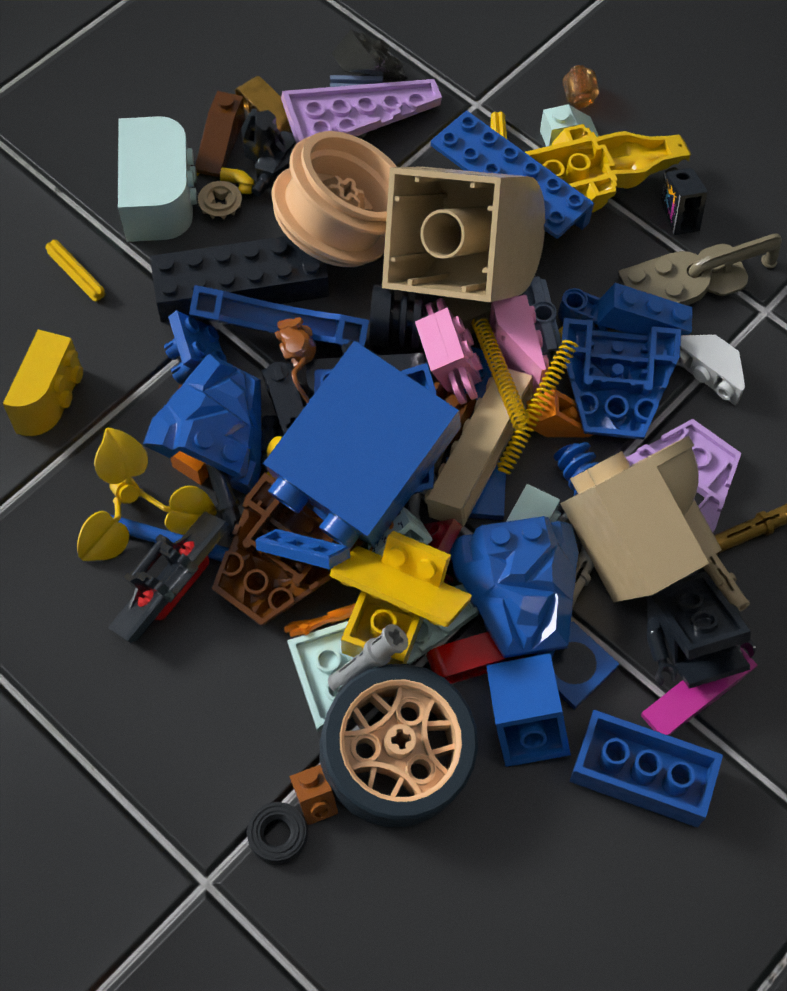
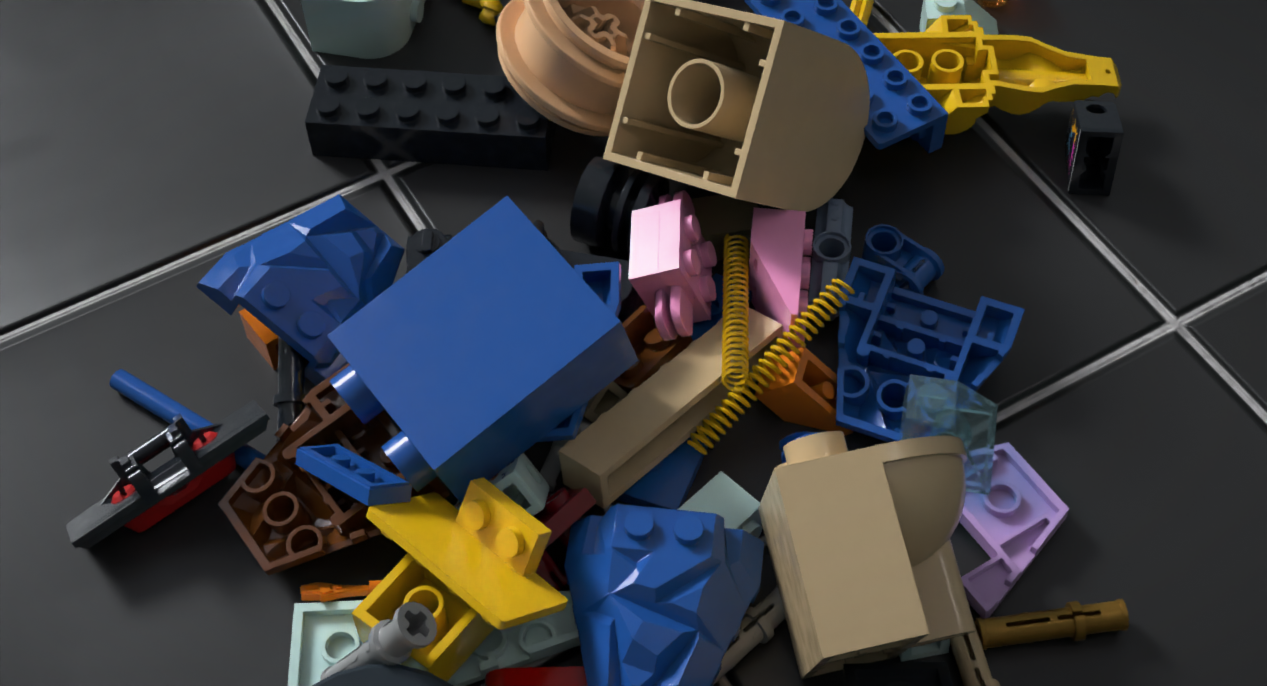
camera: 20 degrees right, 10 degrees down
(43, 384) = (116, 190): yellow brick -> none
(75, 270) = (230, 70): yellow axle -> none
(116, 463) = (157, 292): yellow plant -> none
(192, 343) = (335, 172): blue plate -> none
(221, 190) = (456, 12): tan gear -> none
(263, 316) = (447, 172): blue arch -> none
(296, 346) = (463, 204): dark orange animal -> none
(638, 311) = (965, 270): blue brick -> none
(654, 422) = (953, 409): none -> clear light blue slope
(713, 270) = (1067, 248): dark tan plate -> none
(713, 363) = (1064, 371): white slope -> none

